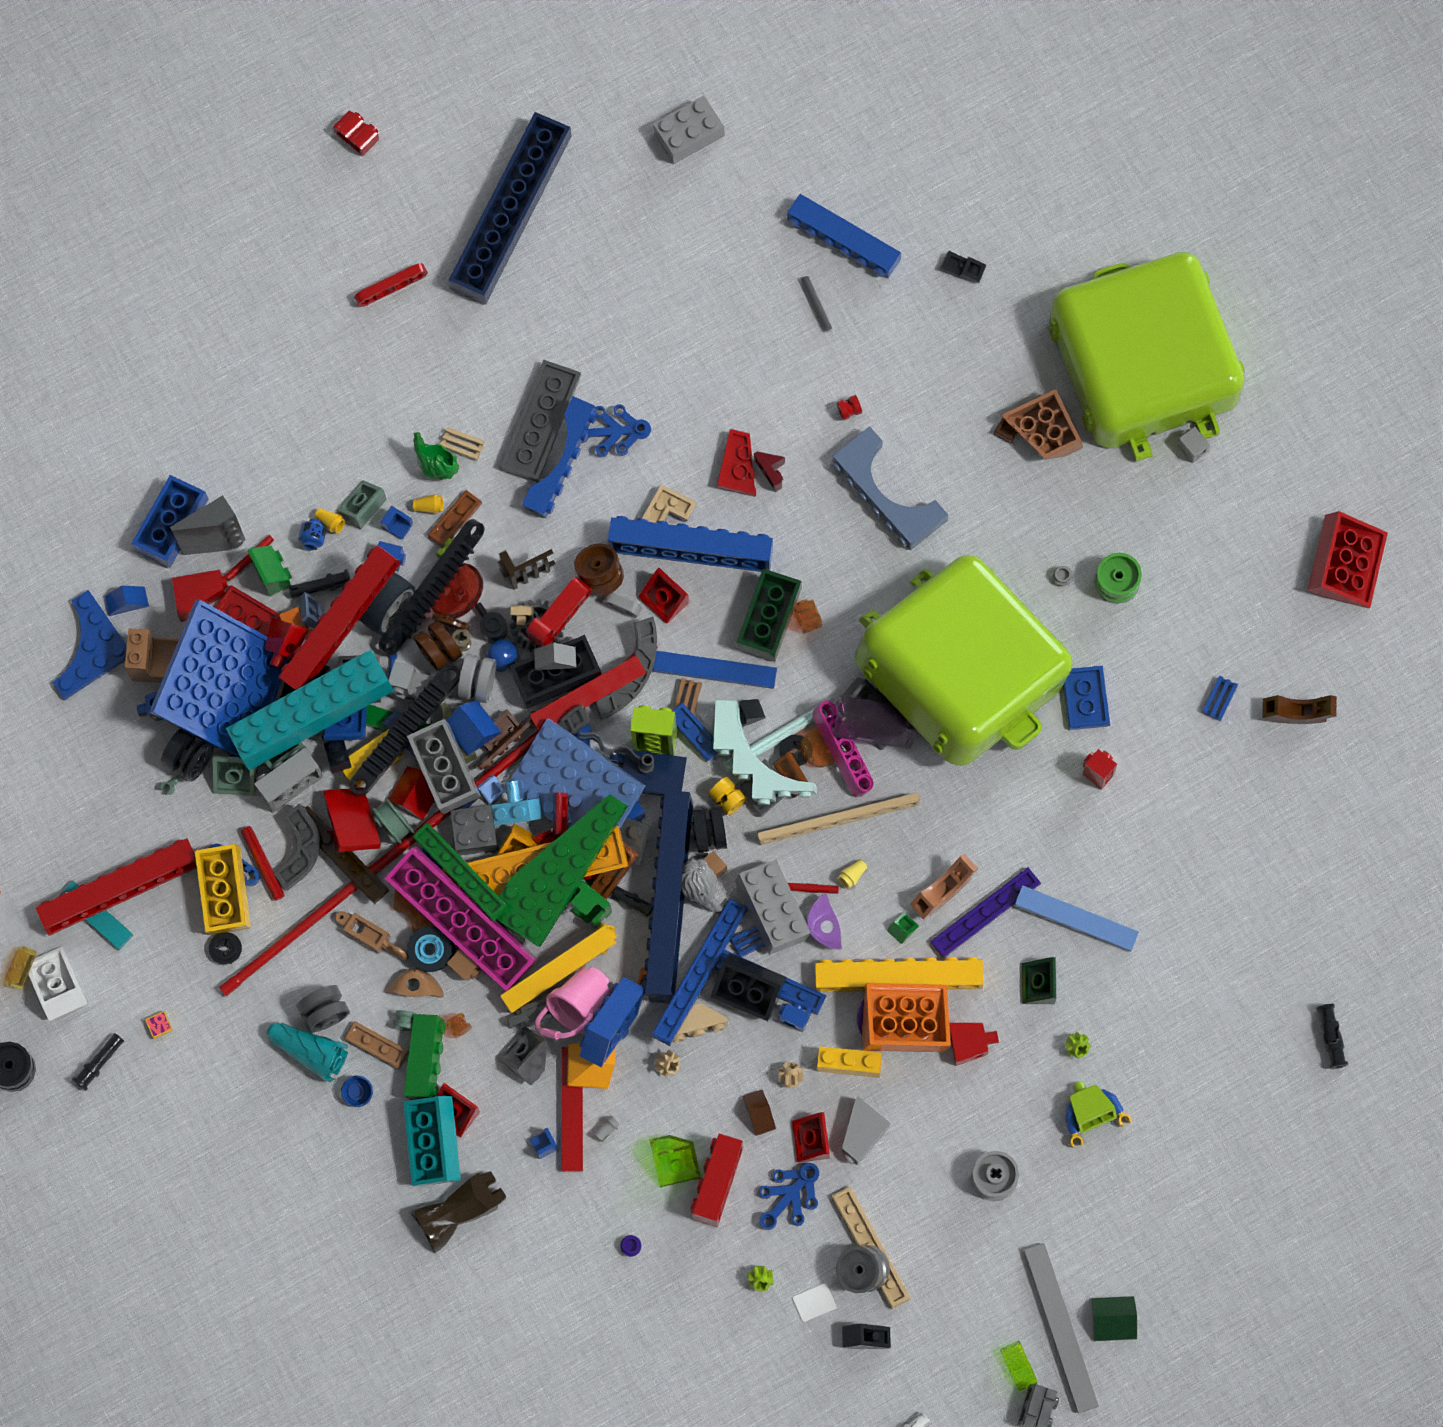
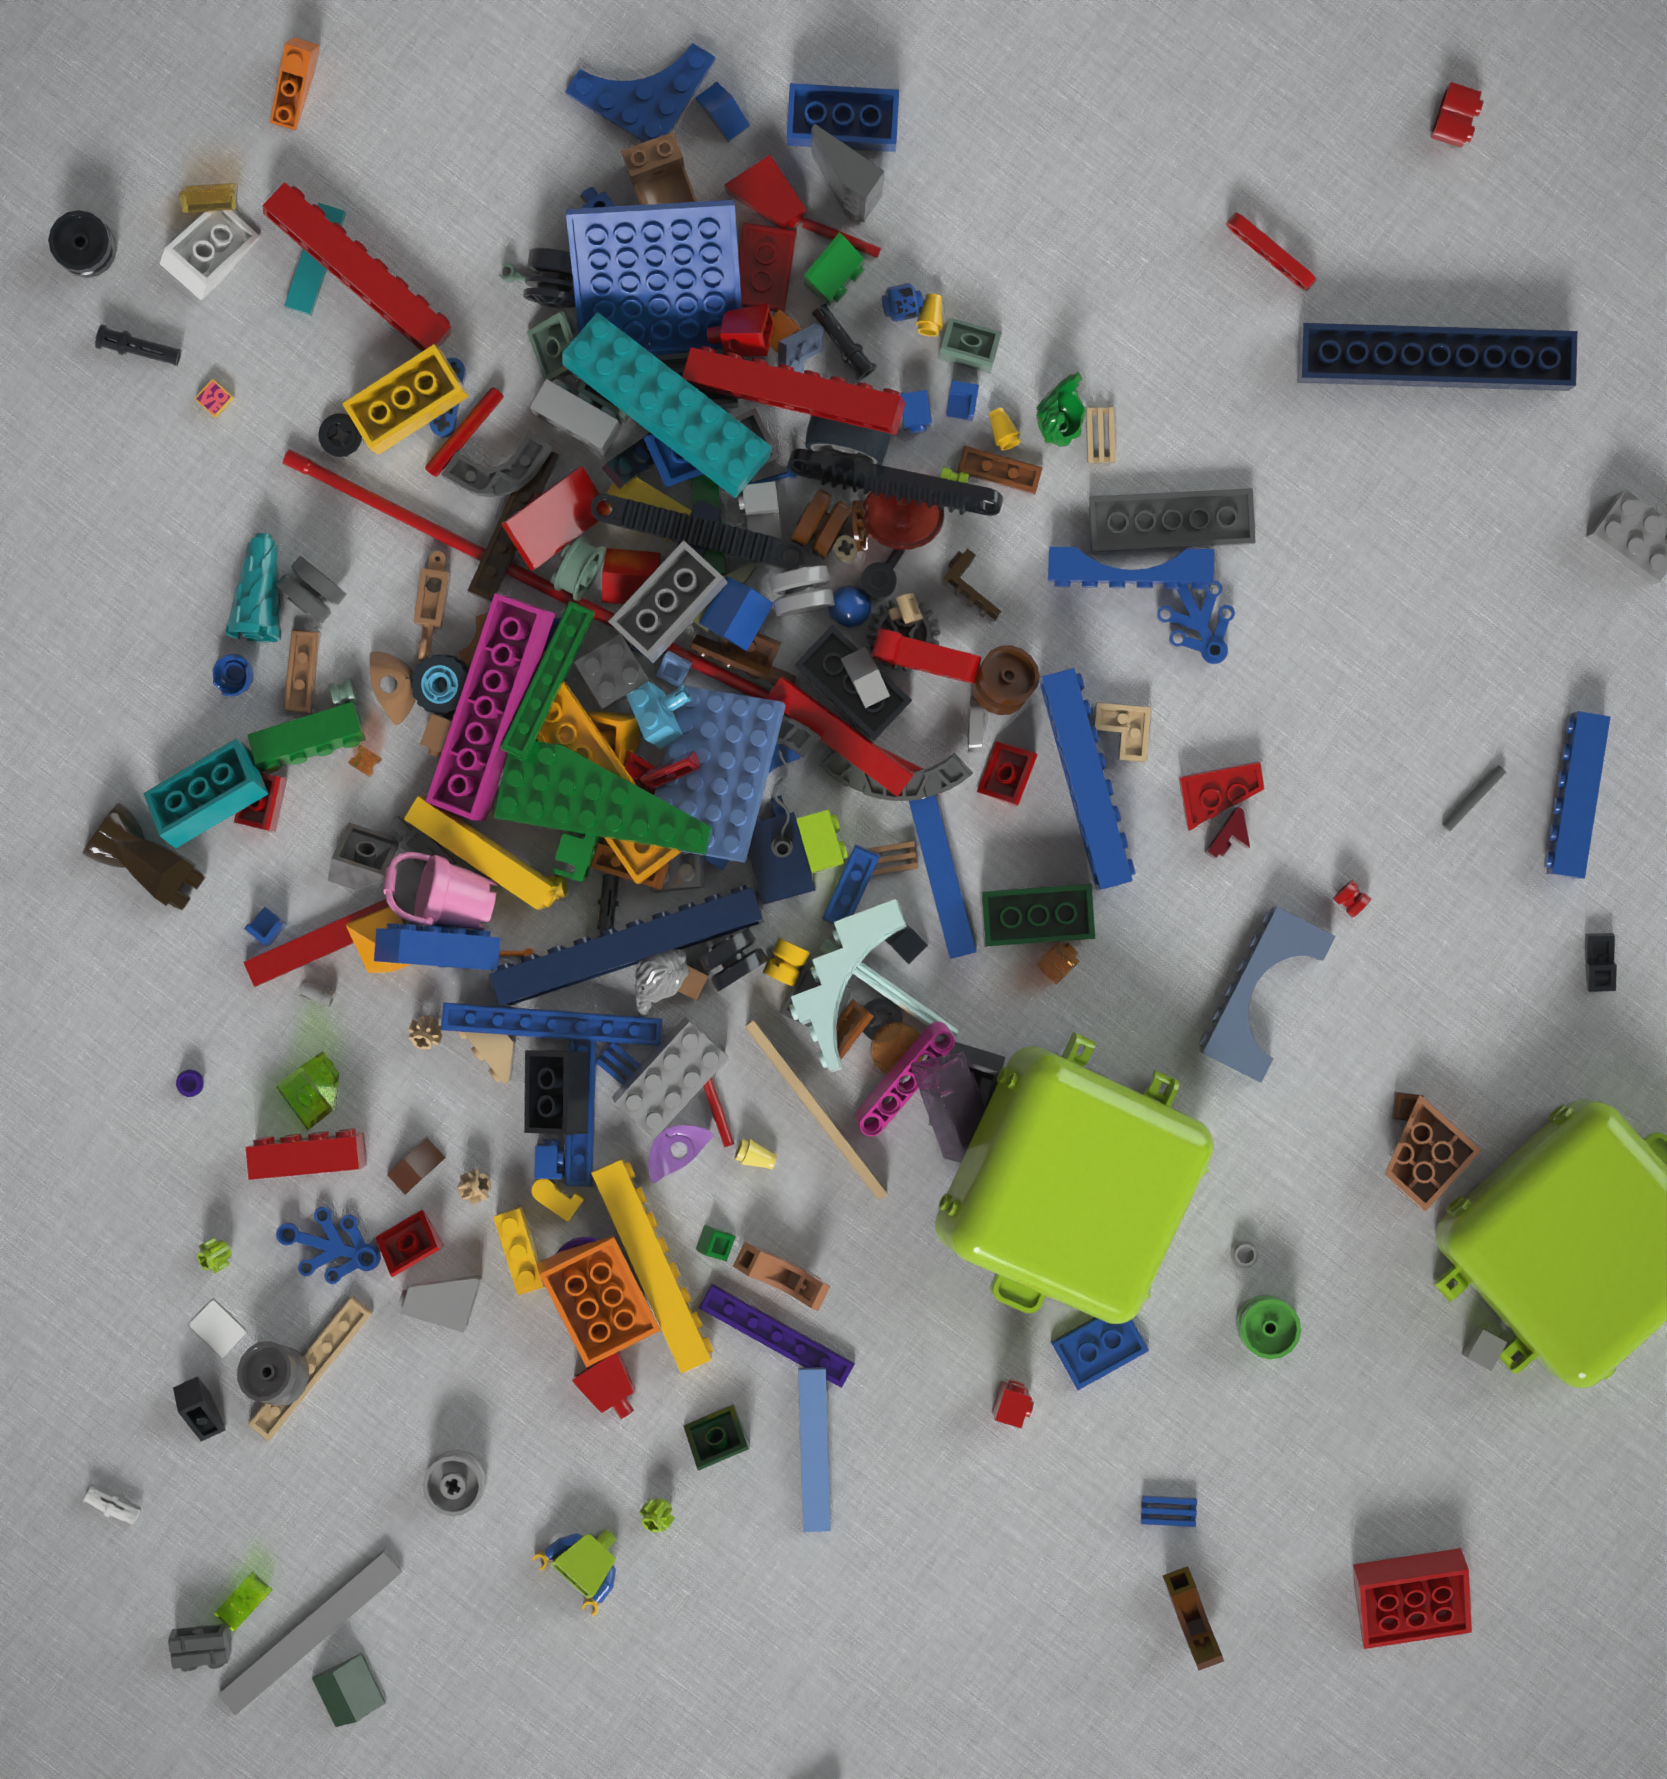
camera: 65 degrees right, 15 degrees up
(826, 1022) = (556, 1200): none -> yellow leg

